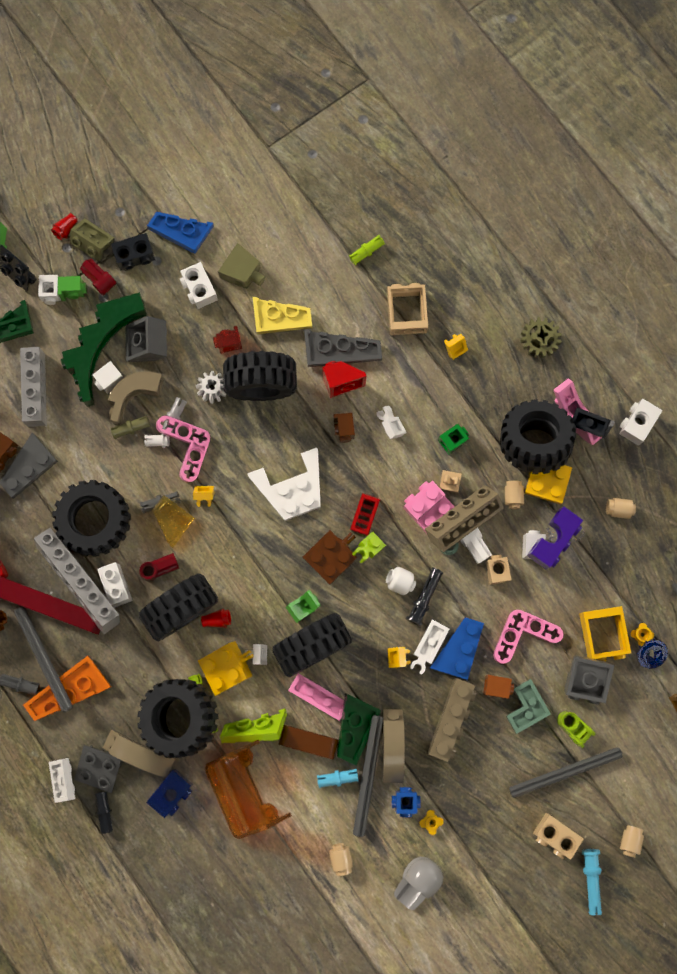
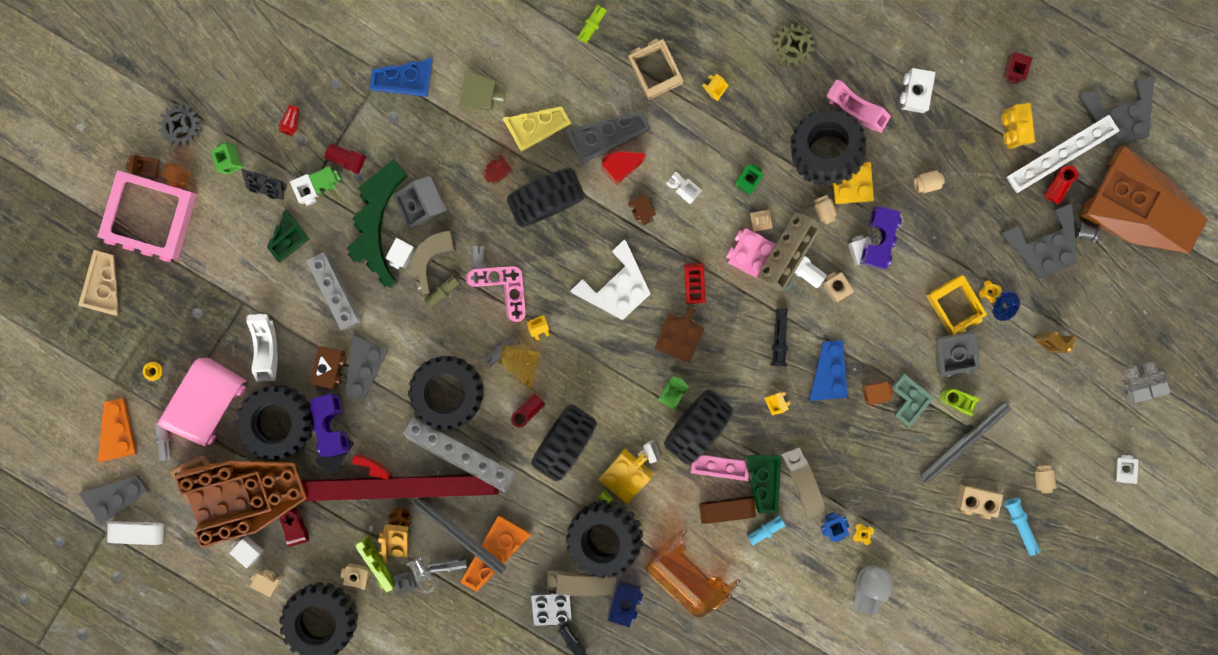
camera: 15 degrees left, 10 degrees up
(62, 780) = (525, 632): white bracket -> none
(90, 239) = (320, 123): olive bracket -> none
(114, 584) = (494, 443): white brick -> none
(132, 247) = (364, 115): black brick -> none
(157, 440) = (474, 293): white pin -> none
(202, 284) = (448, 124): white brick -> none
(205, 390) = (503, 229): white gear -> none
(219, 619) = (601, 435): red cone -> none
(245, 730) = (682, 516): lime wing -> none
(341, 859) = (797, 597): tan brick -> none
(368, 776) = (792, 517): dark grey axle -> none
(369, 547) = (712, 313): lime plate -> none
(400, 581) = (752, 333): white head -> none
(429, 644) = (801, 380): white plate -> none
(451, 719) = (847, 439): dark tan brick -> none
(524, 626) = (878, 328): bright pink beam -> none
(592, 423) = (874, 113): black slope -> none

